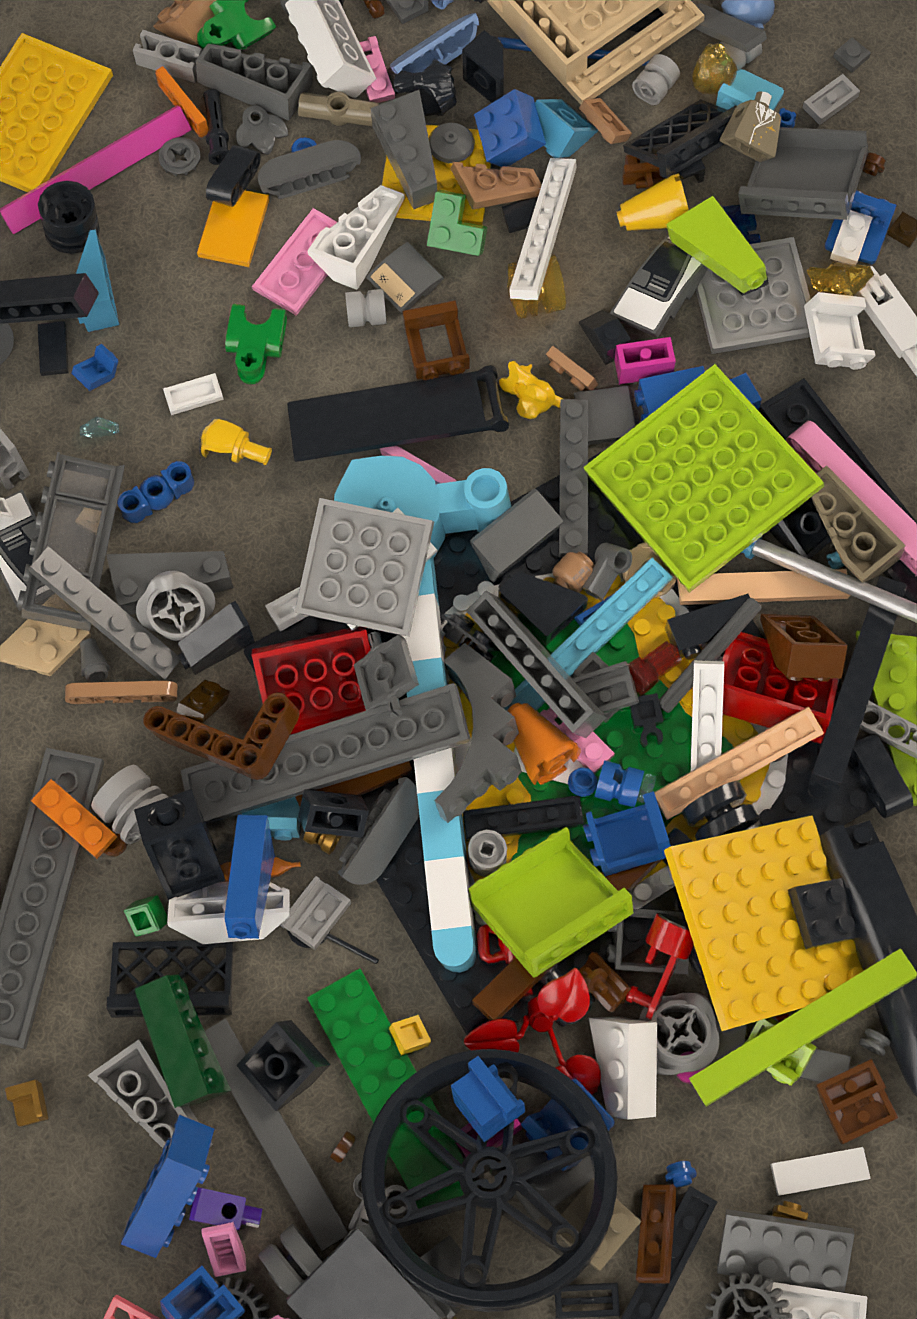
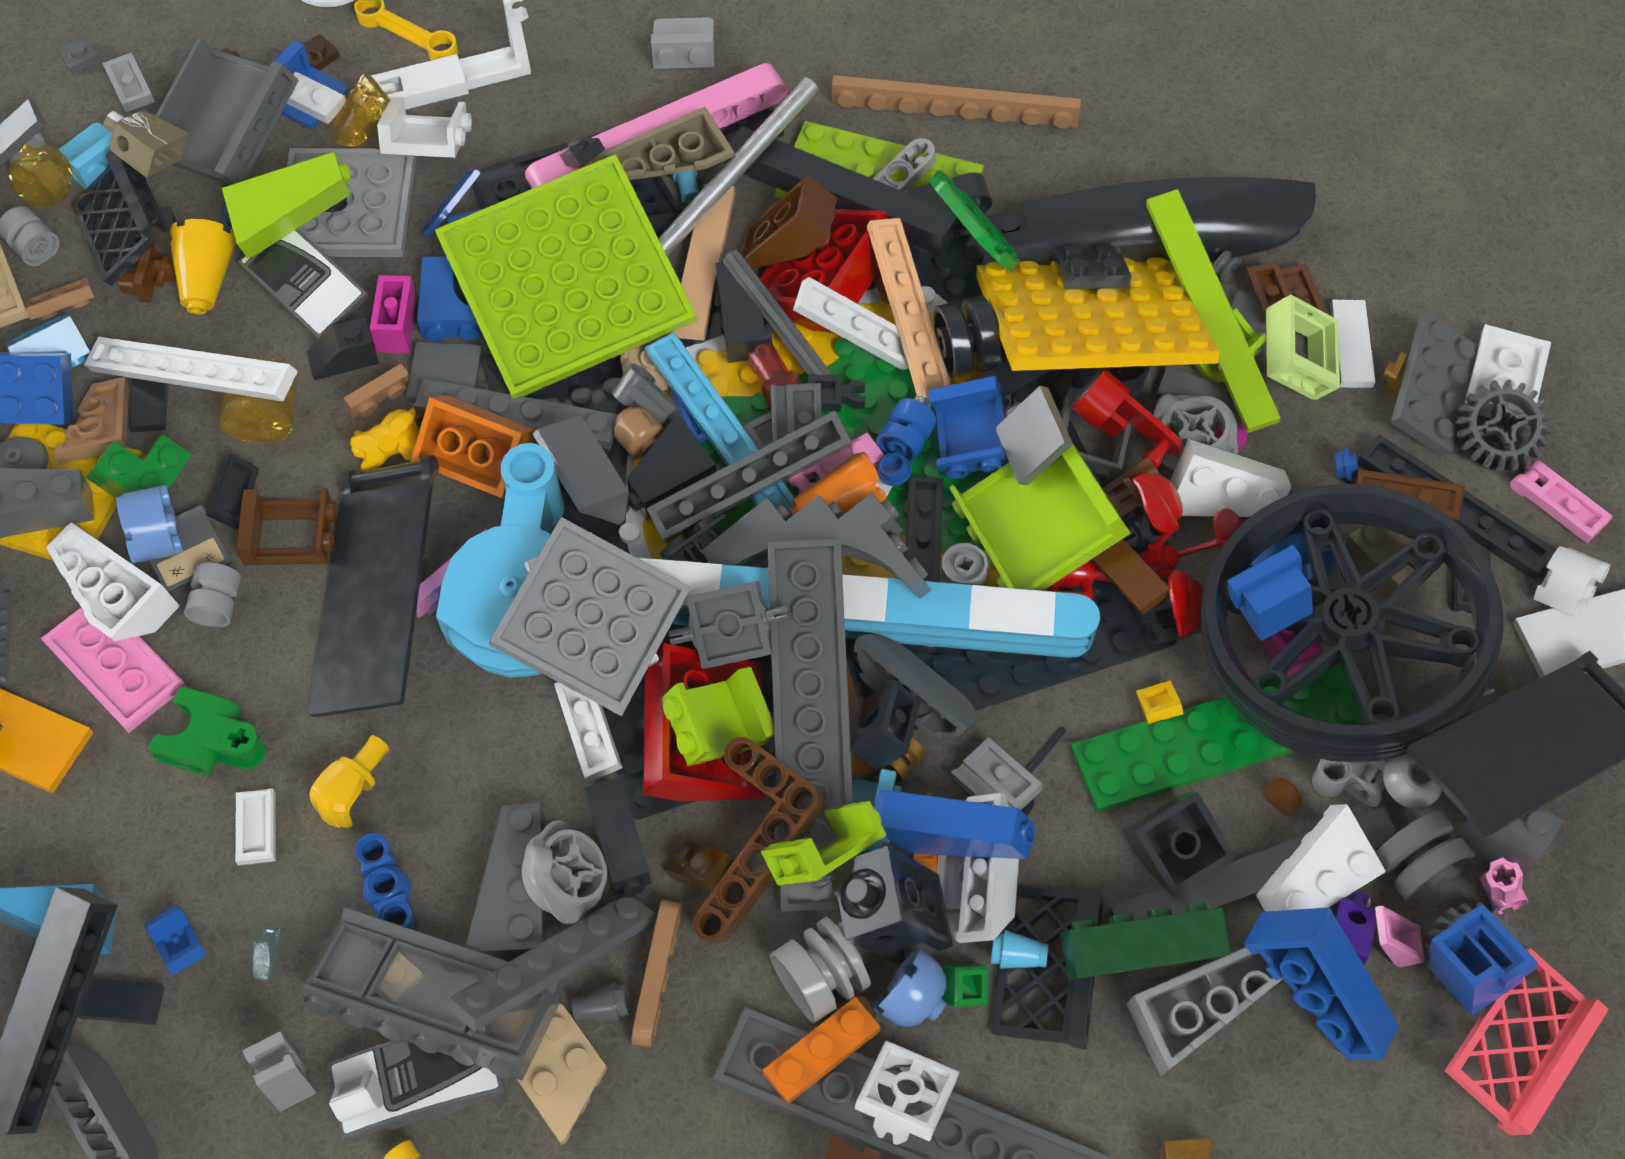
camera: 80 degrees left, 10 degrees down
(19, 896) = (914, 1068): none -> white piece
(127, 877) = (914, 991): none -> medium blue cylinder
(171, 950) = (1017, 951): none -> medium azure cone
(206, 788) = (799, 860): none -> lime panel
(271, 1181) = (1324, 867): none -> white wedge
(314, 683) = (717, 713): none -> lime panel
(403, 243) = (149, 524): none -> medium blue brick
(467, 293) = (227, 495): none -> black tile
(531, 449) = (469, 442): none -> orange brick
(612, 882) = (1033, 435): none -> tile
(768, 372) = (450, 202): none -> blue window
(790, 1142) = (1309, 376): none -> yellowish green window
(828, 457) = (582, 151): none -> black plate
(840, 798) = (975, 220): none -> green tile

